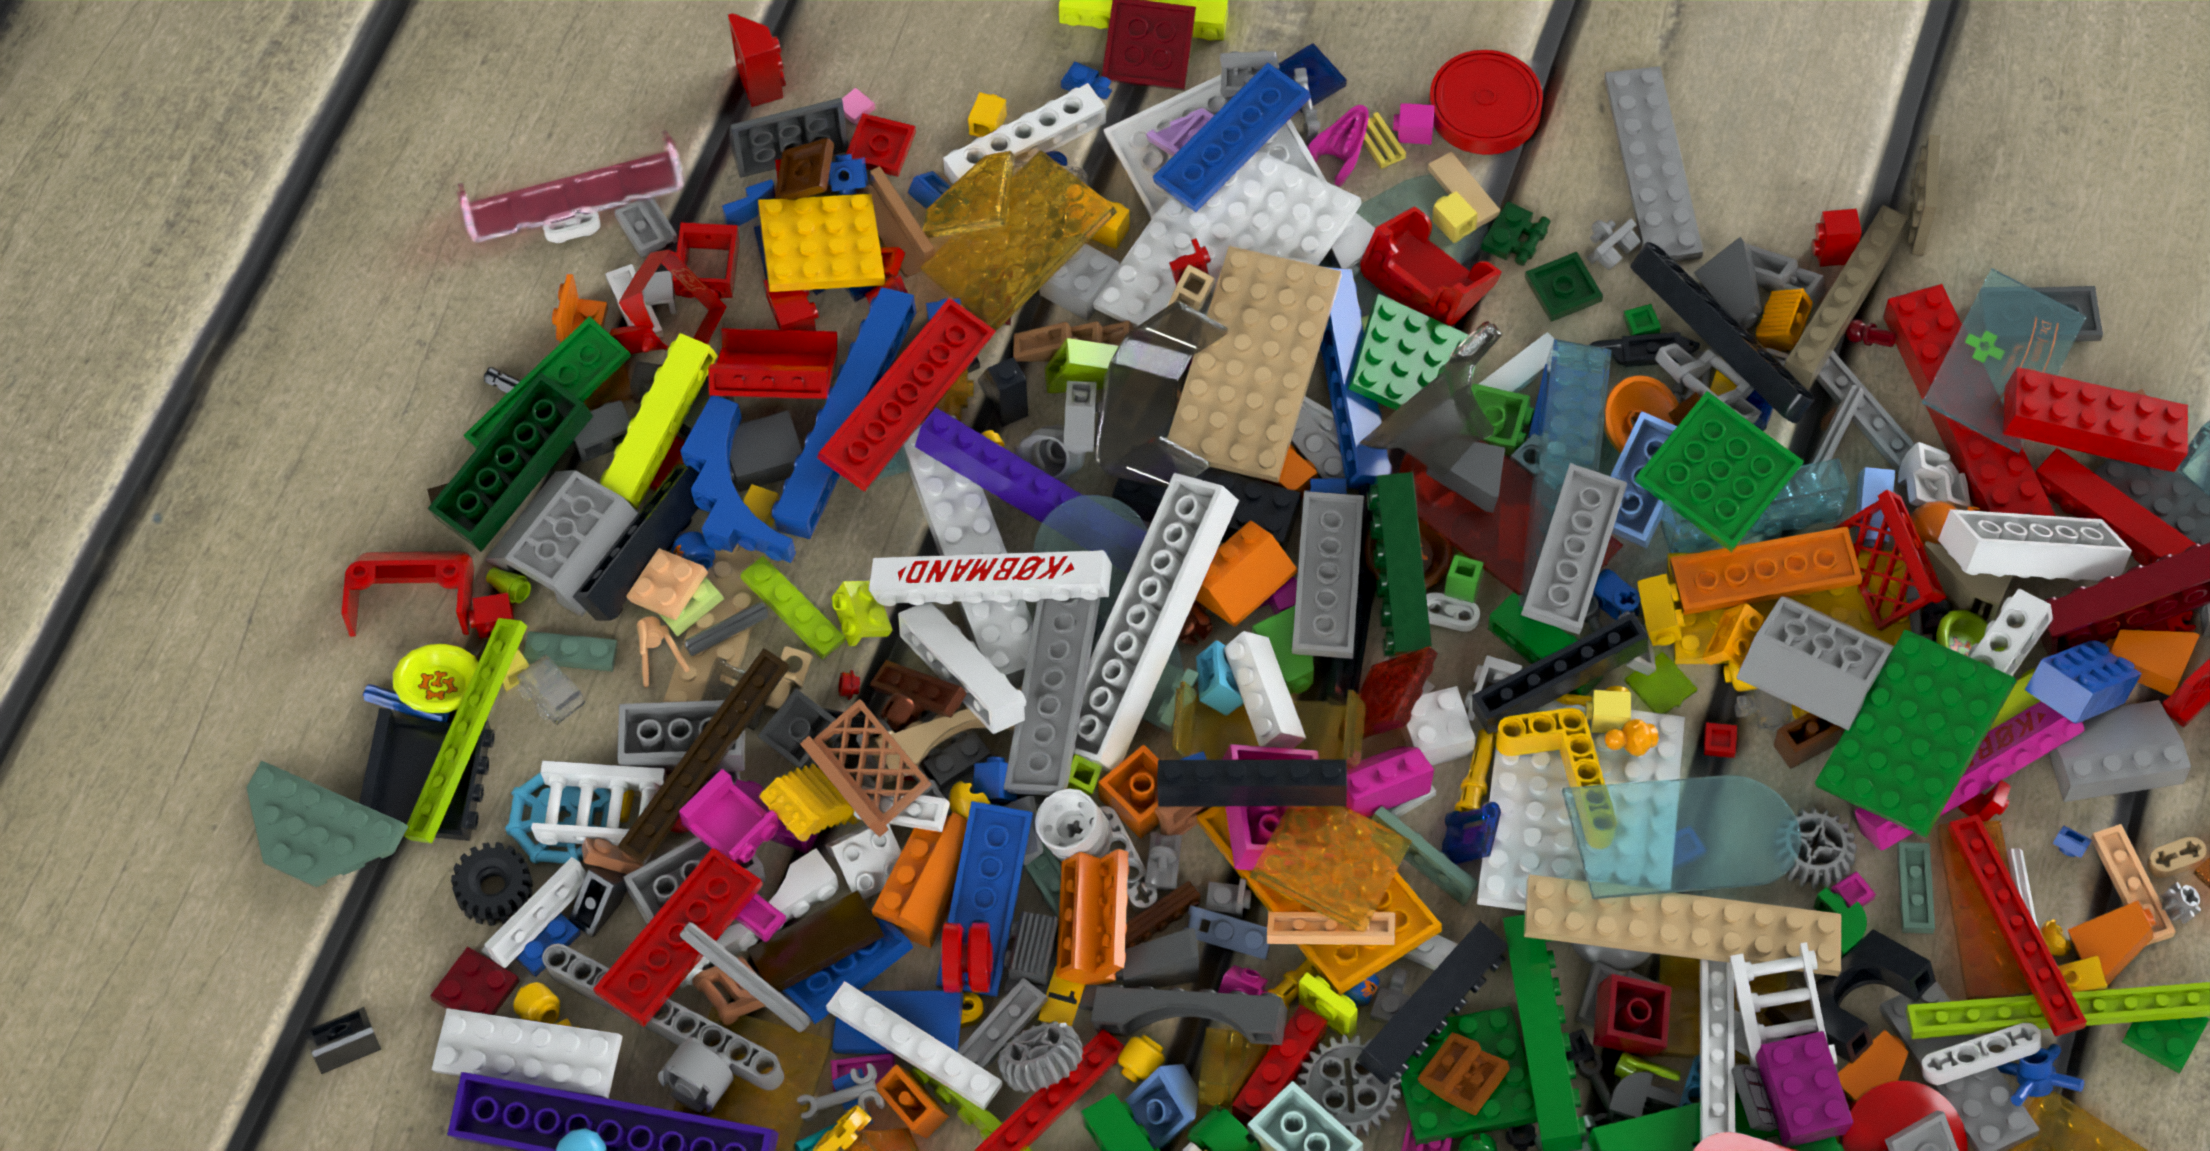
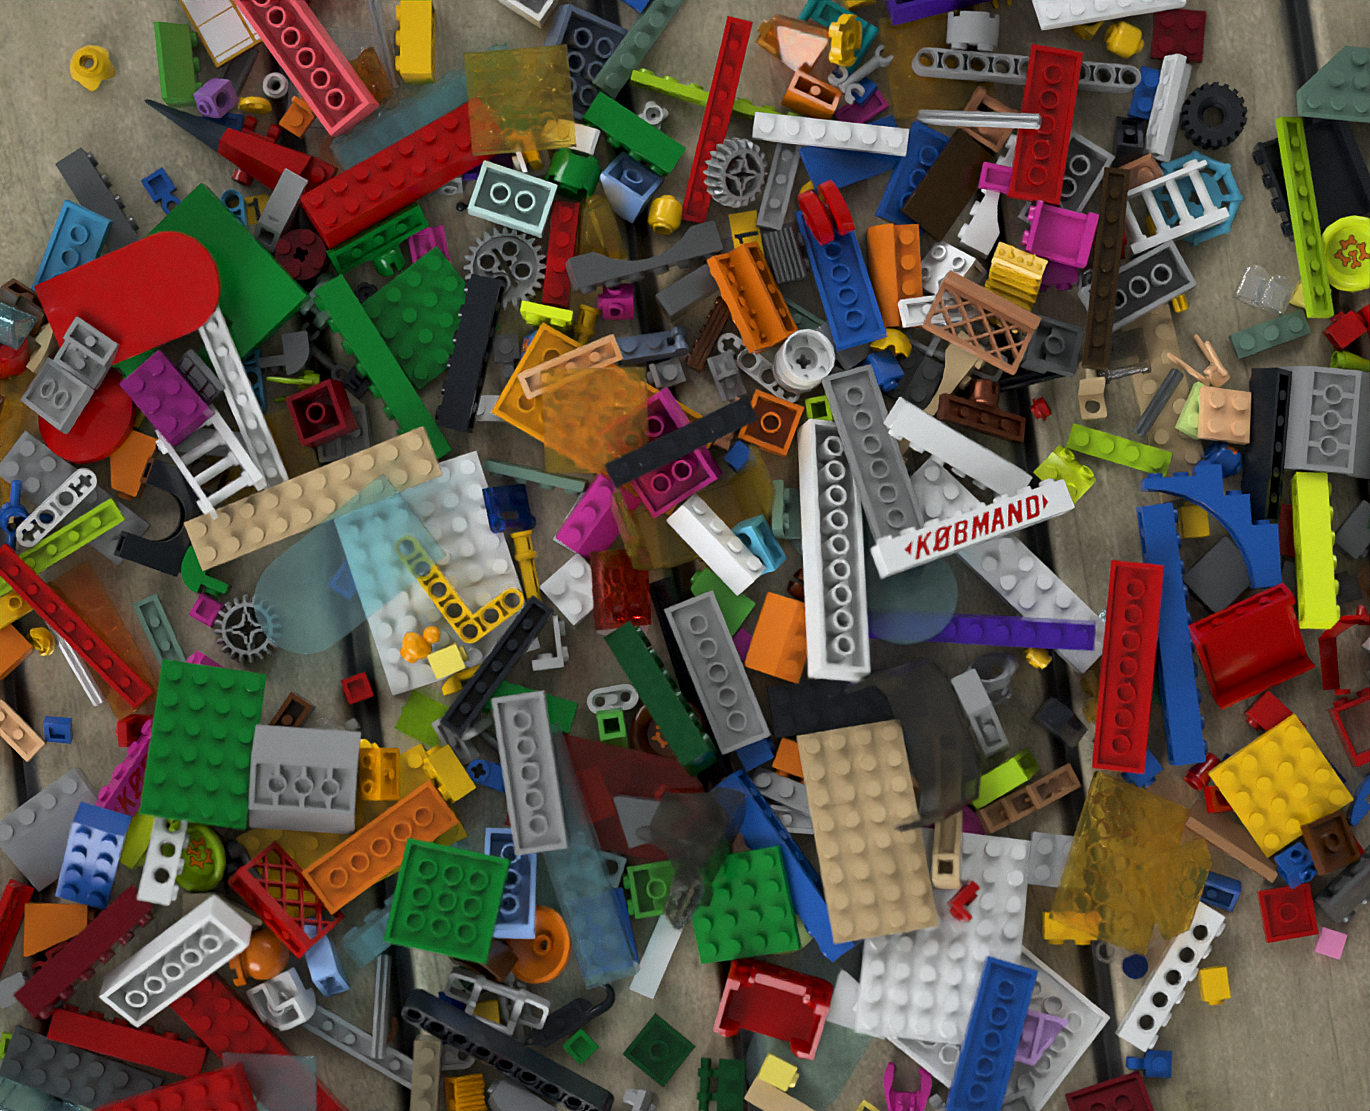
camera: 155 degrees right, 25 degrees up
(1463, 1073) = (424, 310): dark orange slope -> none

